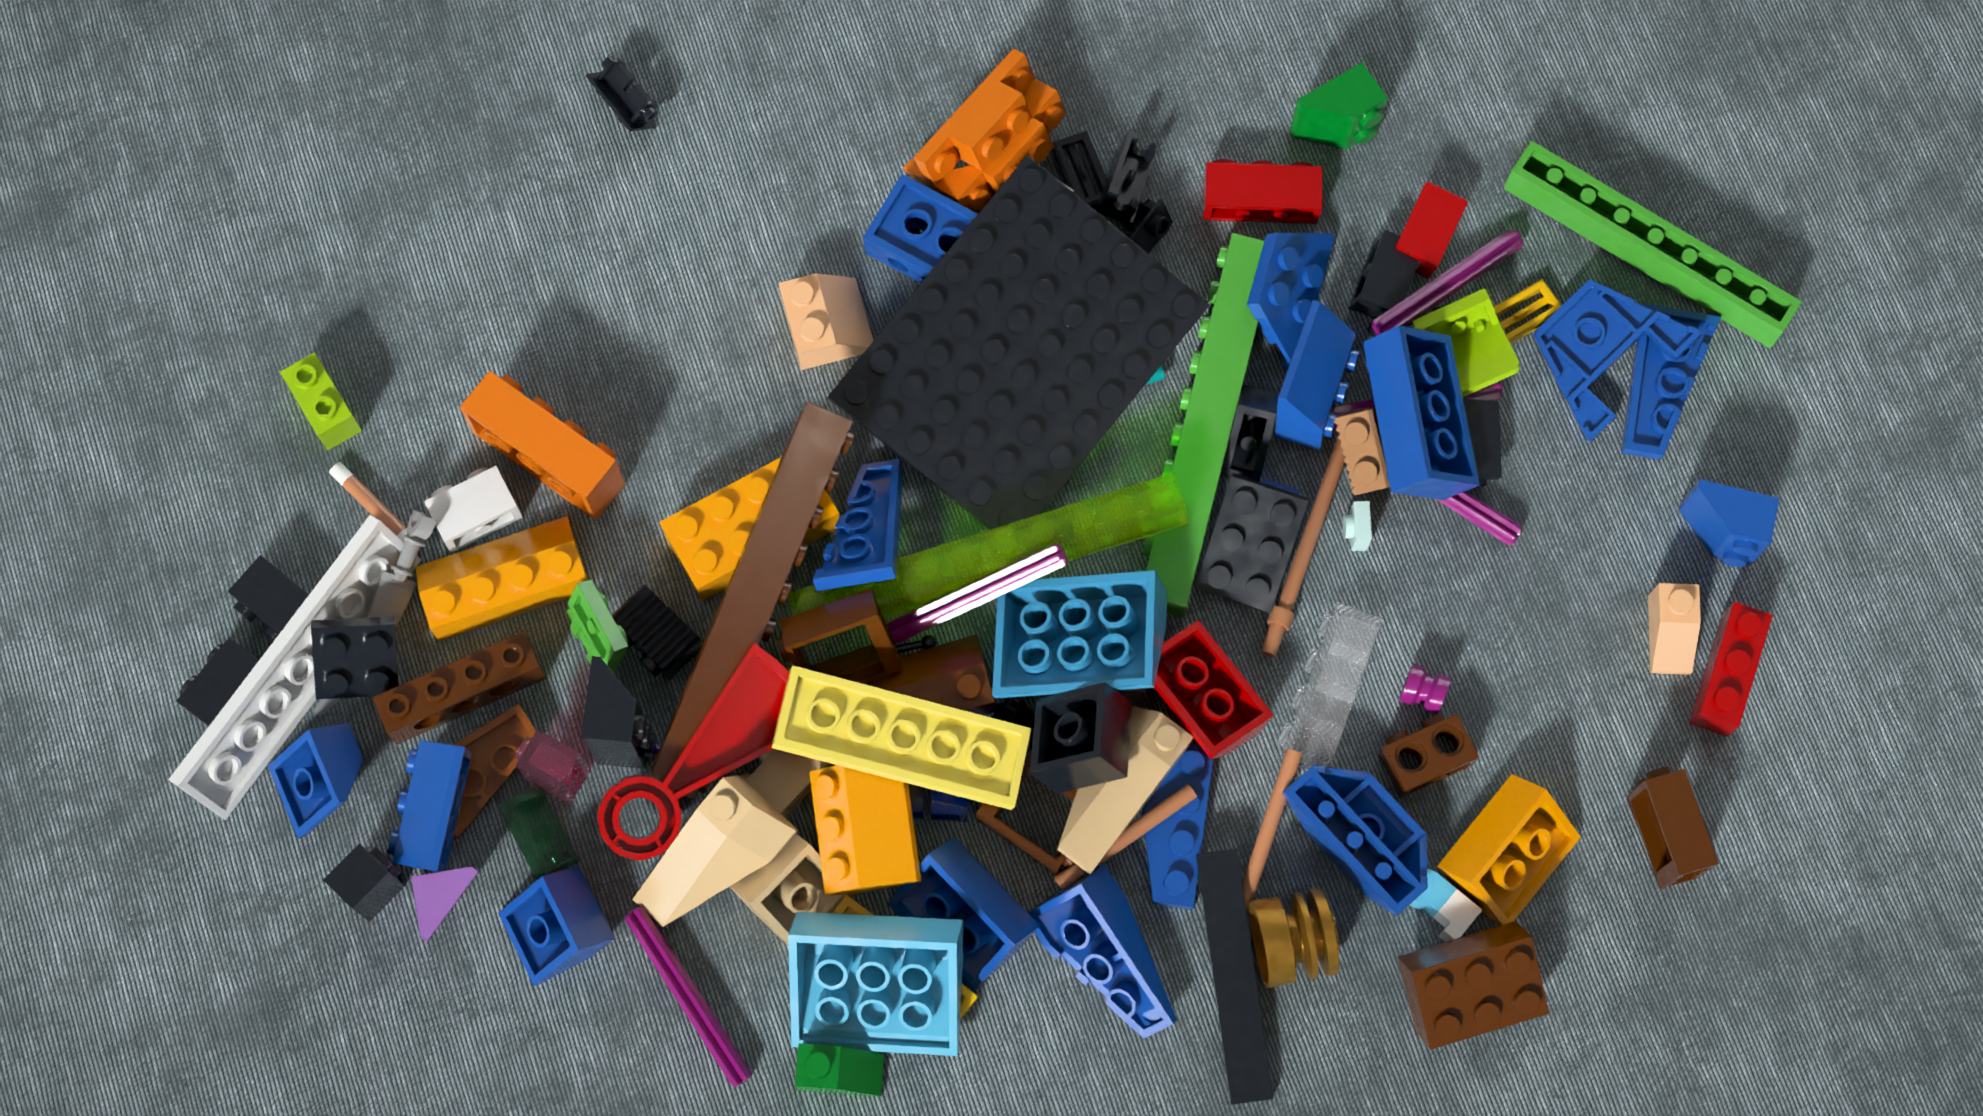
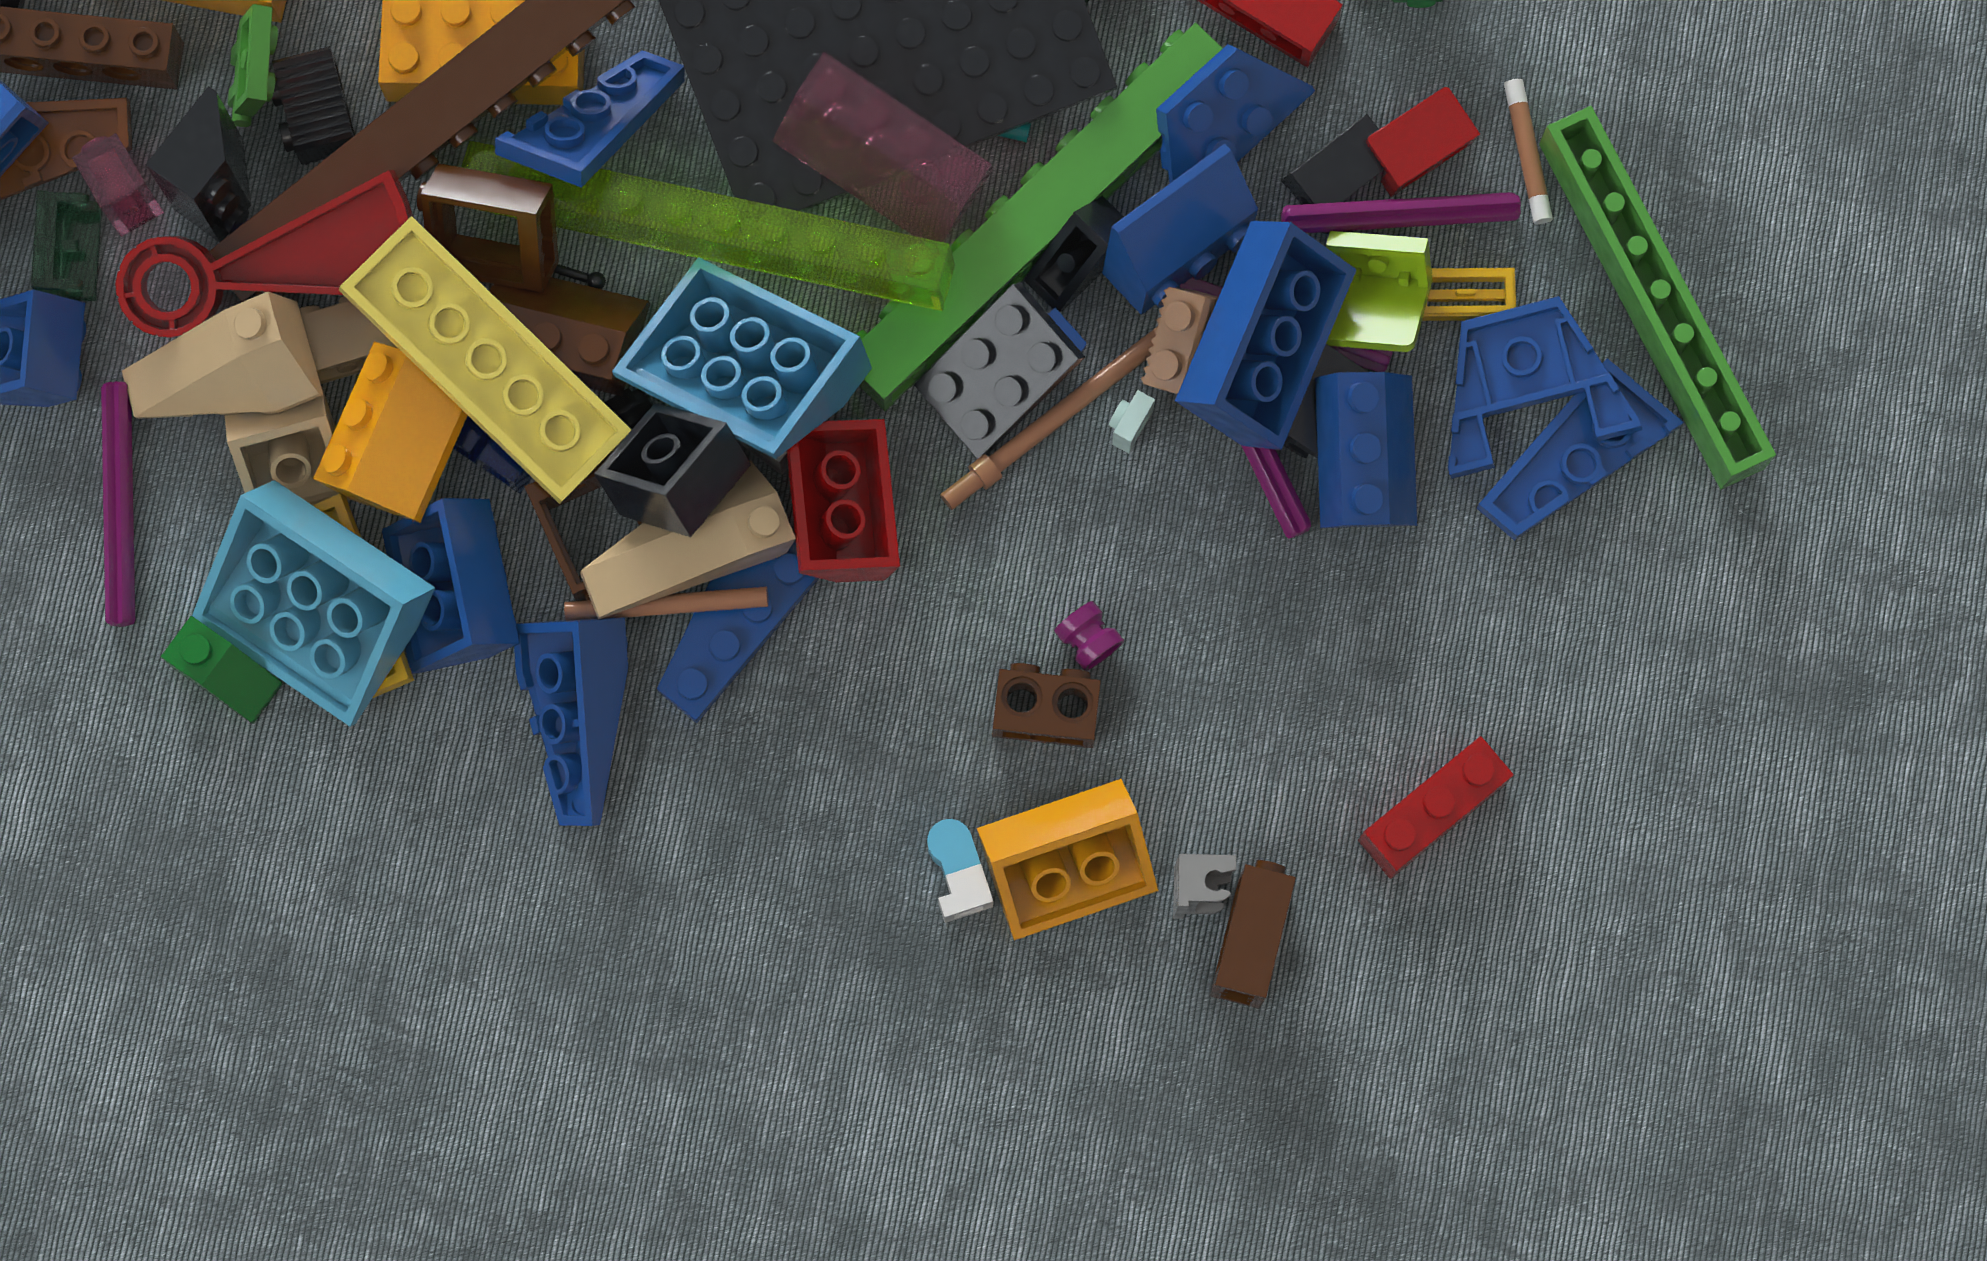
camera: 30 degrees right, 5 degrees up
(978, 592) = (669, 255): axle -> none
(1081, 437) = (881, 151): none -> clear pink slope
(1234, 977) = (691, 816): black tile -> none
(1270, 824) = (824, 683): nougat bar -> none
(1294, 937) = (772, 811): pearl gold wheel -> none
(1331, 686) = (988, 575): clear brick -> none
(1363, 833) = (920, 744): blue wedge -> none
(1473, 985) = (930, 972): reddish brown brick -> none
(1500, 197) = (1528, 151): none -> nougat bar
(1529, 456) = (1366, 450): none -> blue slope
(1608, 816) = (1197, 881): none -> light grey hinge
(1673, 627) = (1403, 729): light nougat slope -> none
(1730, 521) = (1538, 649): blue slope -> none

